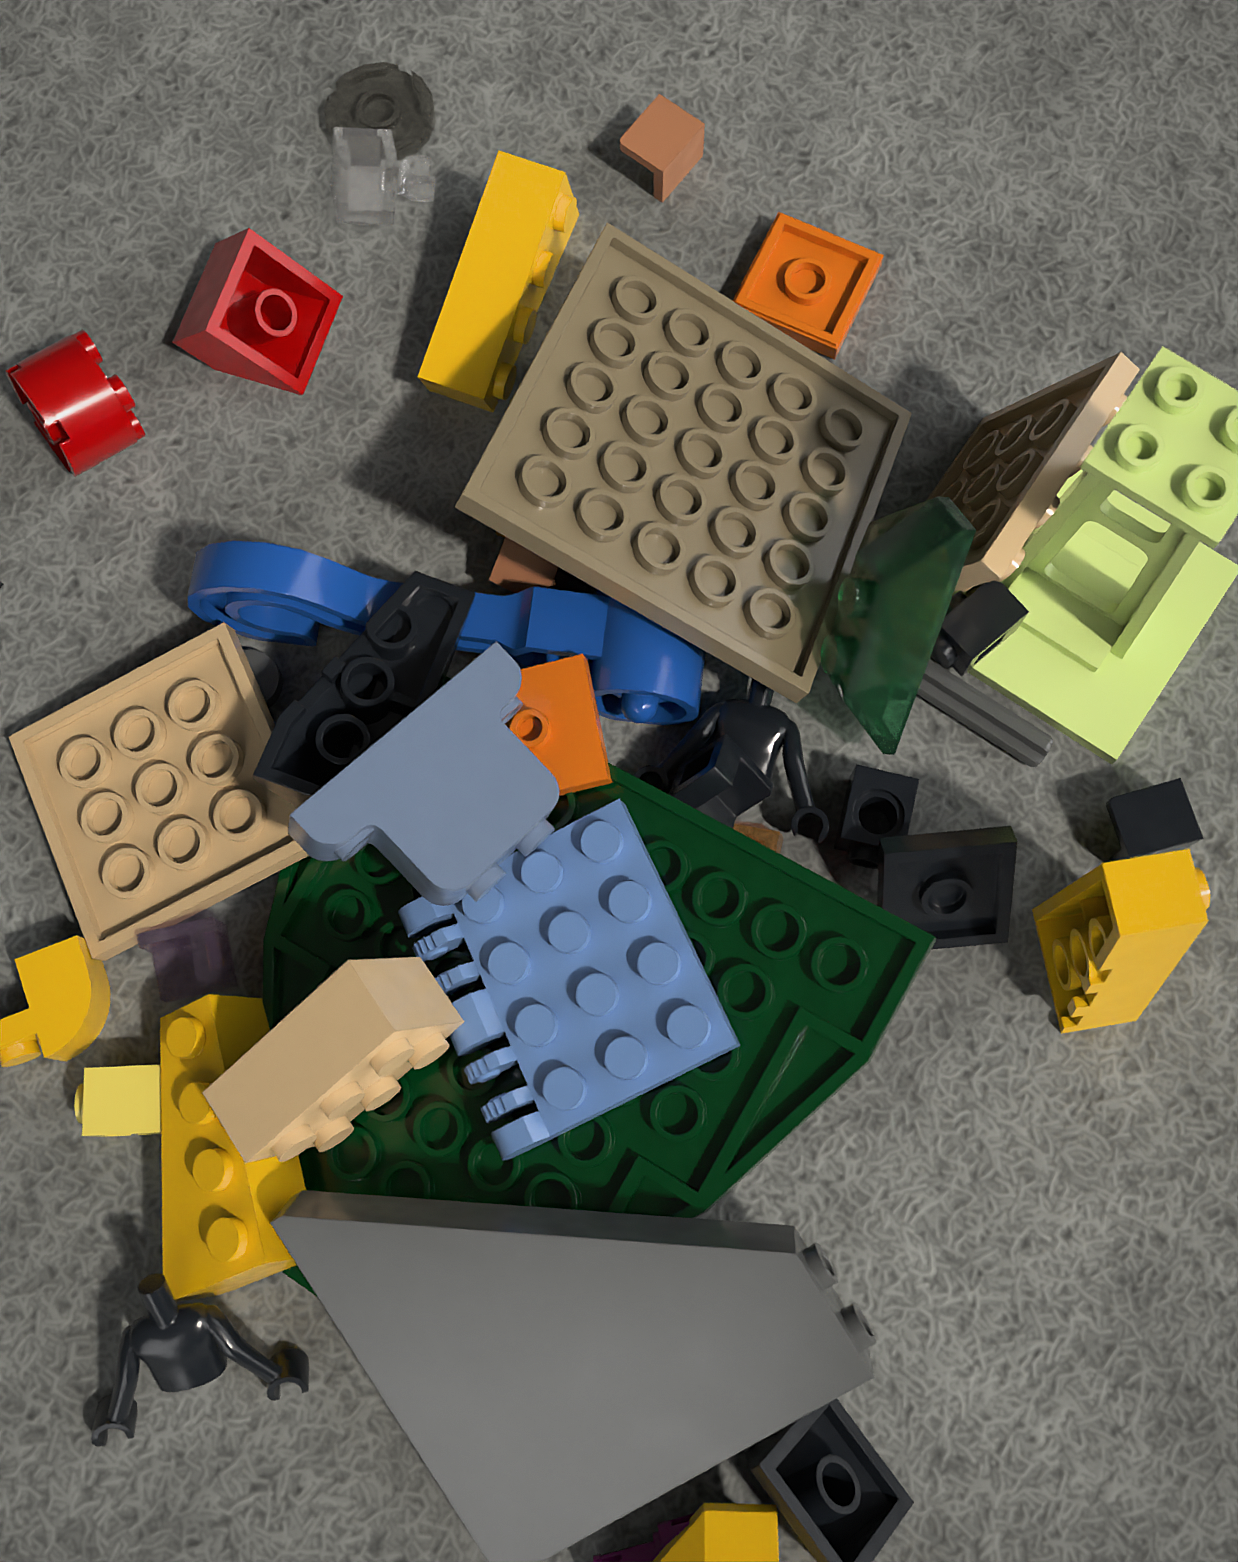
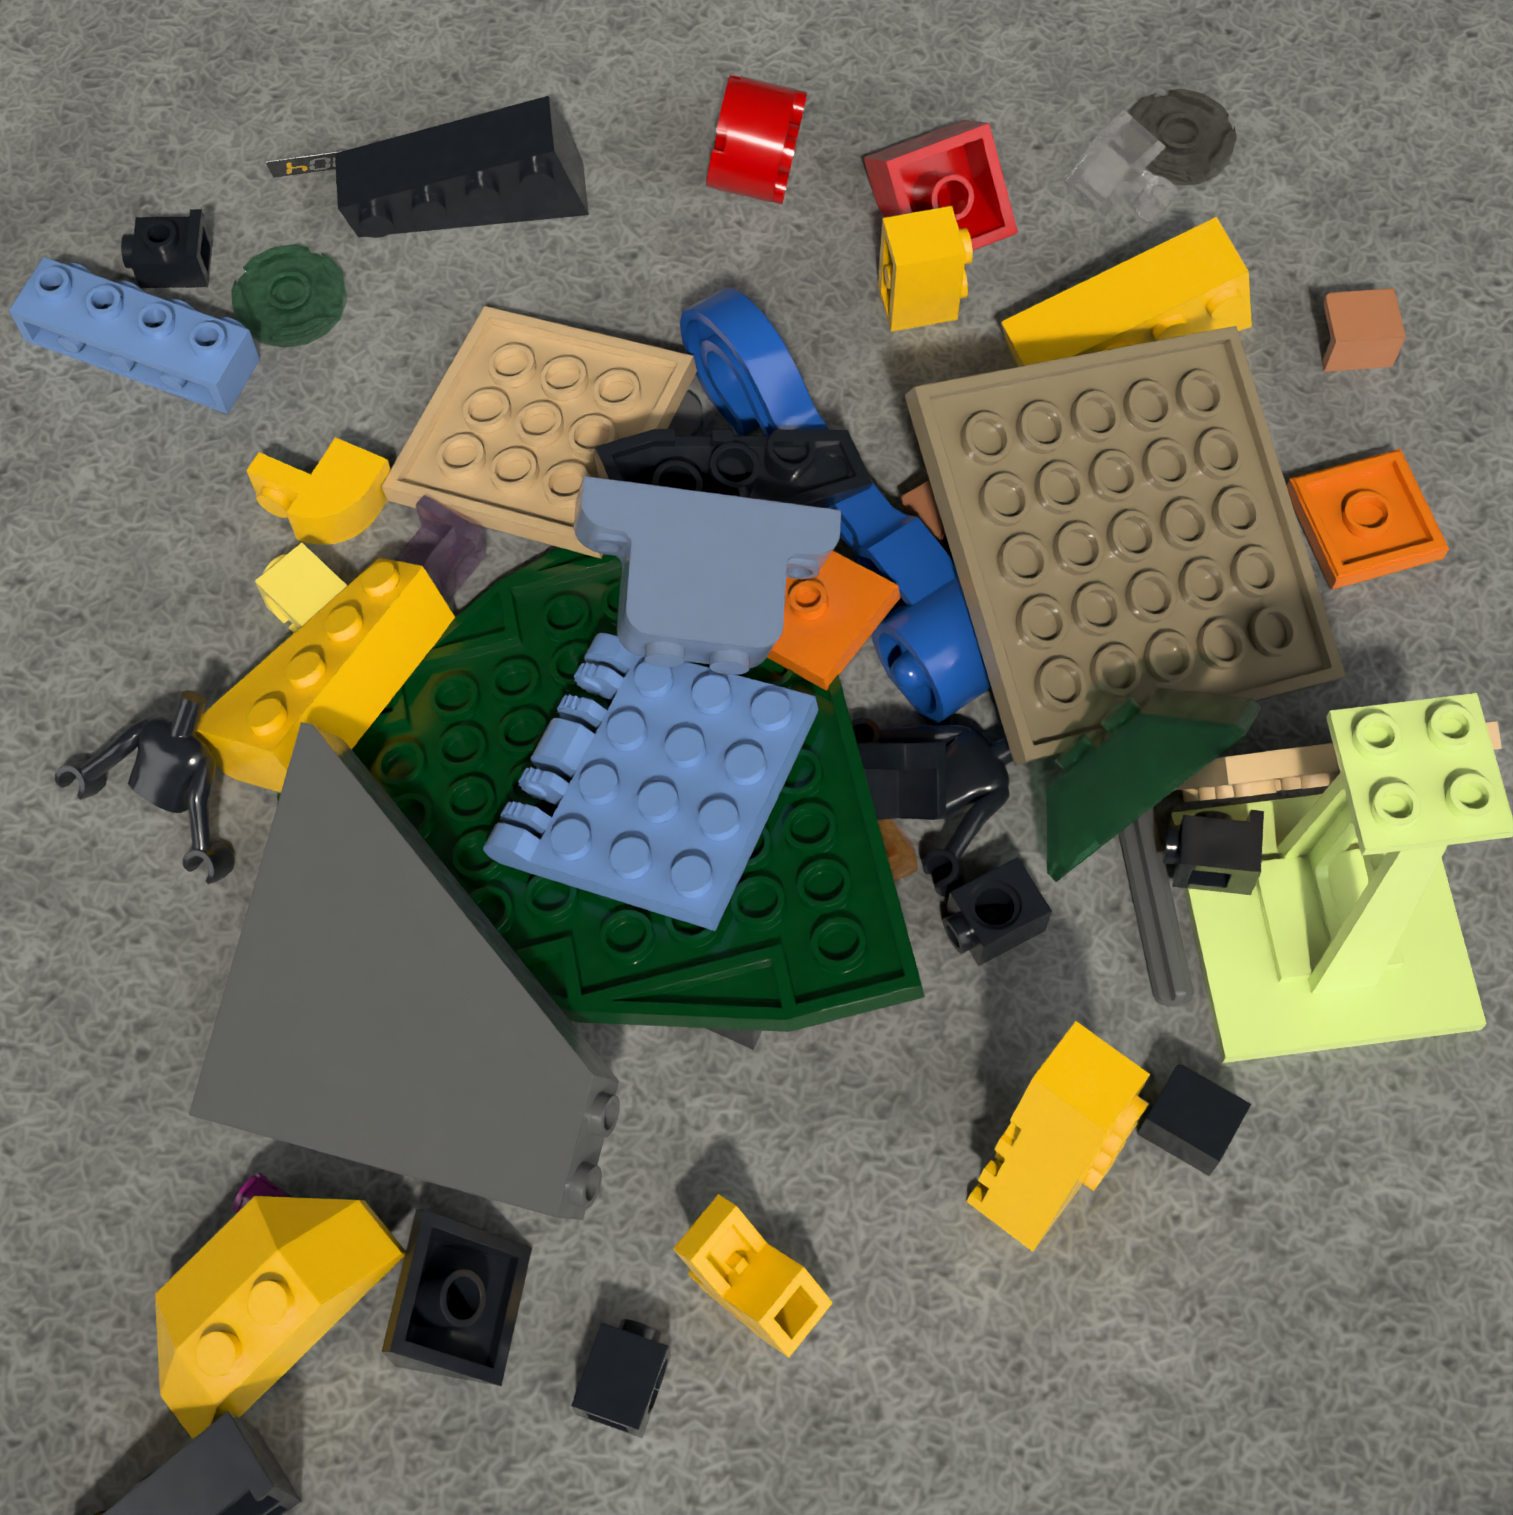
camera: 45 degrees right, 10 degrees down
(316, 388) = (923, 268): none -> yellow brick
(334, 1058) = (453, 670): tan piece -> none
(951, 883) = (986, 1003): black plate -> none
(995, 1409) = (622, 1377): none -> black brick
(1004, 1247) = (751, 1277): none -> yellow brick

